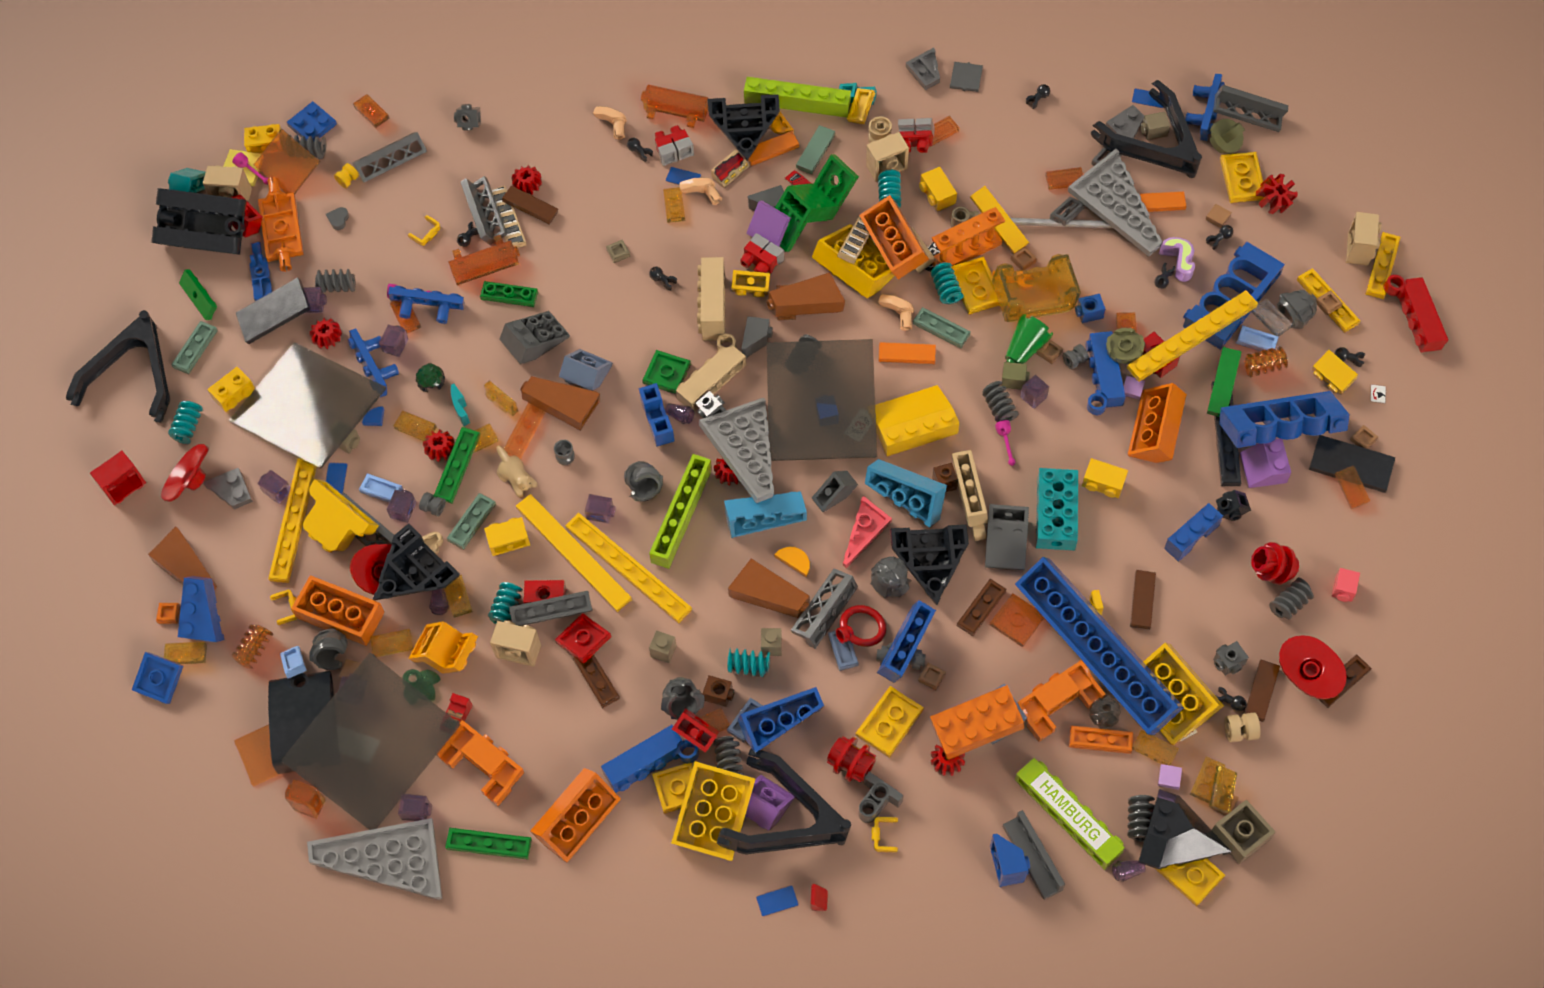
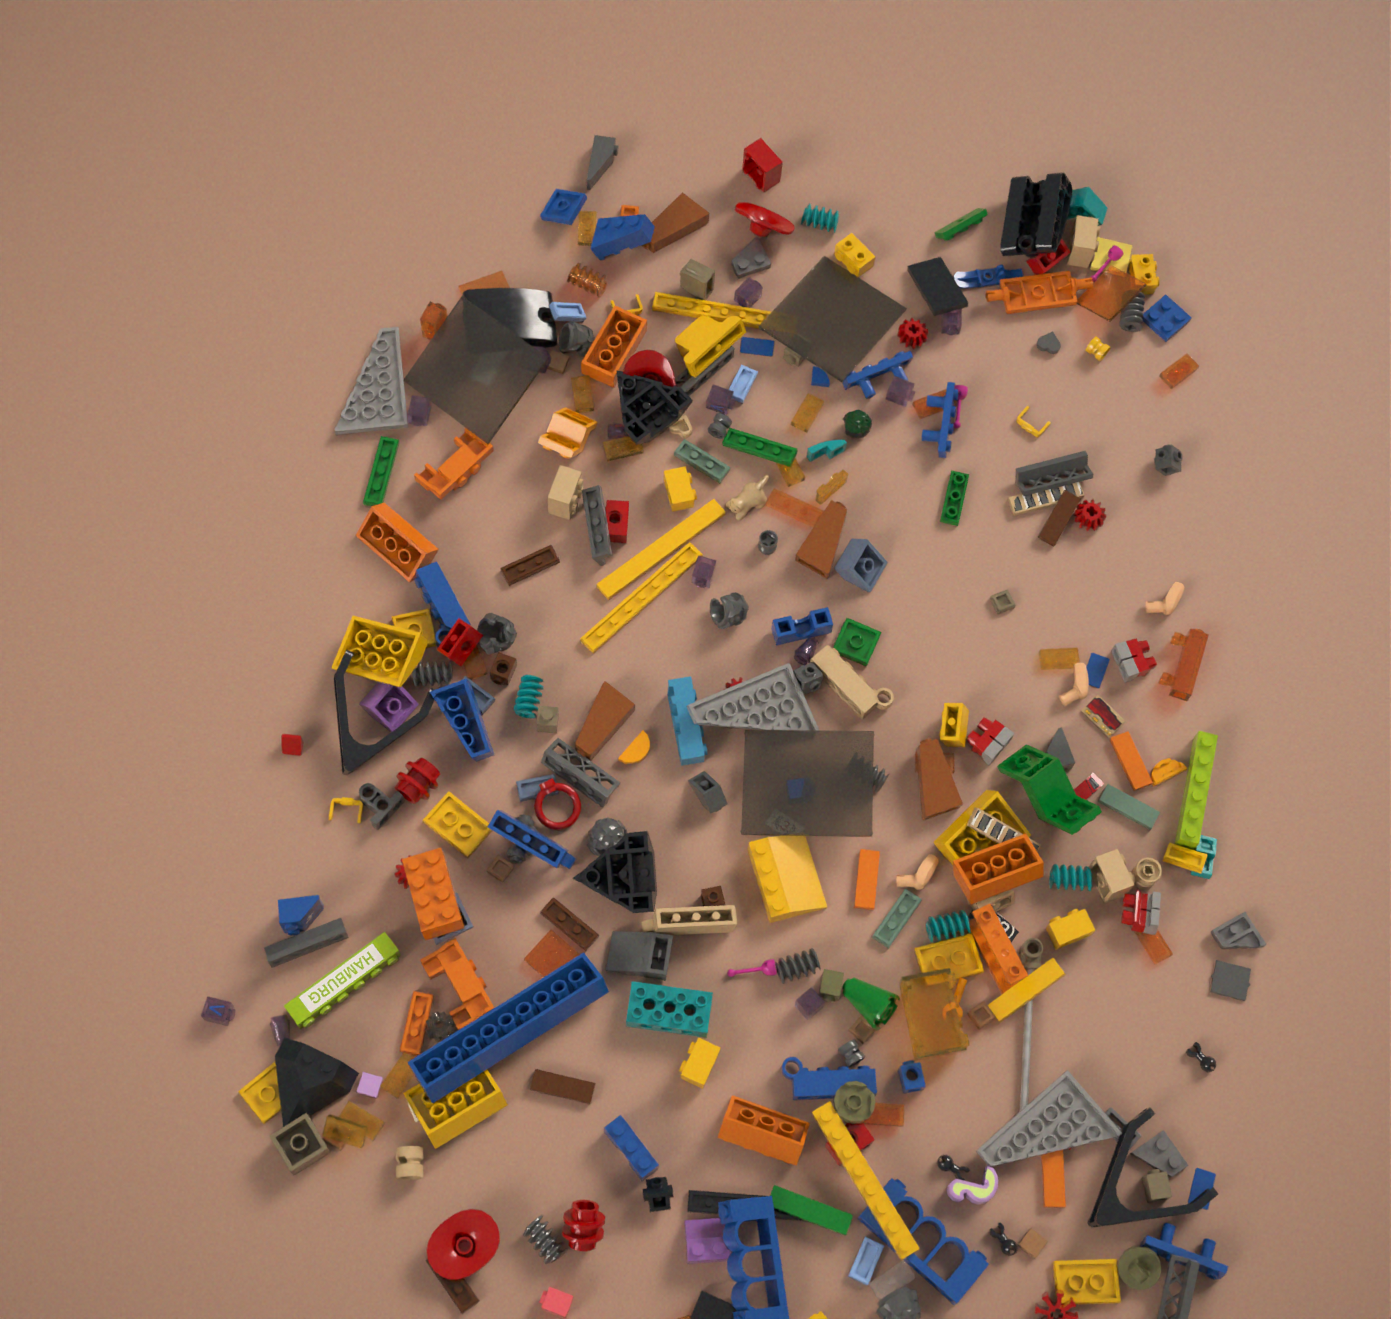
camera: 85 degrees right, 5 degrees up
(91, 645) = (601, 158): none -> dark grey slope
(139, 333) = (918, 177): black piece -> none
(194, 347) = (904, 224): sand green tile -> none
(258, 532) = (697, 279): none -> dark tan torso
(335, 281) = (971, 340): dark grey piece -> none
(391, 148) = (1127, 383): dark grey fence -> none
(424, 681) = (535, 418): clear green plate -> none
(438, 445) = (789, 431): red gear -> none
(459, 707) = (507, 446): red leg -> none
(465, 238) = (1021, 457): black arm -> none
(484, 262) = (990, 474): clear orange brick -> none
(505, 598) = (609, 486): teal piece -> none
(532, 336) = (902, 518): dark grey slope -> none
(583, 638) = (569, 553): red tile -> none
(634, 144) = (1133, 622): black arm -> none
(657, 274) = (970, 638): black arm -> none
(662, 646) = (552, 621): dark tan brick -> none
(680, 511) = (693, 643): lime brick -> none
(711, 298) = (934, 684): tan brick -> none
(744, 123) = (1159, 729): black wedge -> none
(756, 335) = (892, 727): dark grey slope -> none
(768, 223) = (1024, 746): medium lavender tile -> none
(777, 900) = (297, 711): blue sticker -> none
(868, 525) = (667, 822): coral wing -> none
(907, 489) = (699, 859): dark azure wedge -> none
(1062, 178) = (1087, 1072): clear orange tile -> none
(1070, 212) = (1027, 1057): flat silver tile -> none
(1095, 601) = (560, 1036): yellow tile -> none
(1119, 934) = (218, 1011): none -> brick
(1133, 387) = (806, 1113): lavender tile -> none
(1139, 816) = (333, 1048): dark grey piece -> none
(1230, 658) = (487, 1169): dark grey brick -> none
(1236, 702) = (440, 1163): black arm -> none
(1262, 689) = (449, 1192): reddish brown tile -> none
(1264, 360) = (833, 1260): clear orange piece -> none

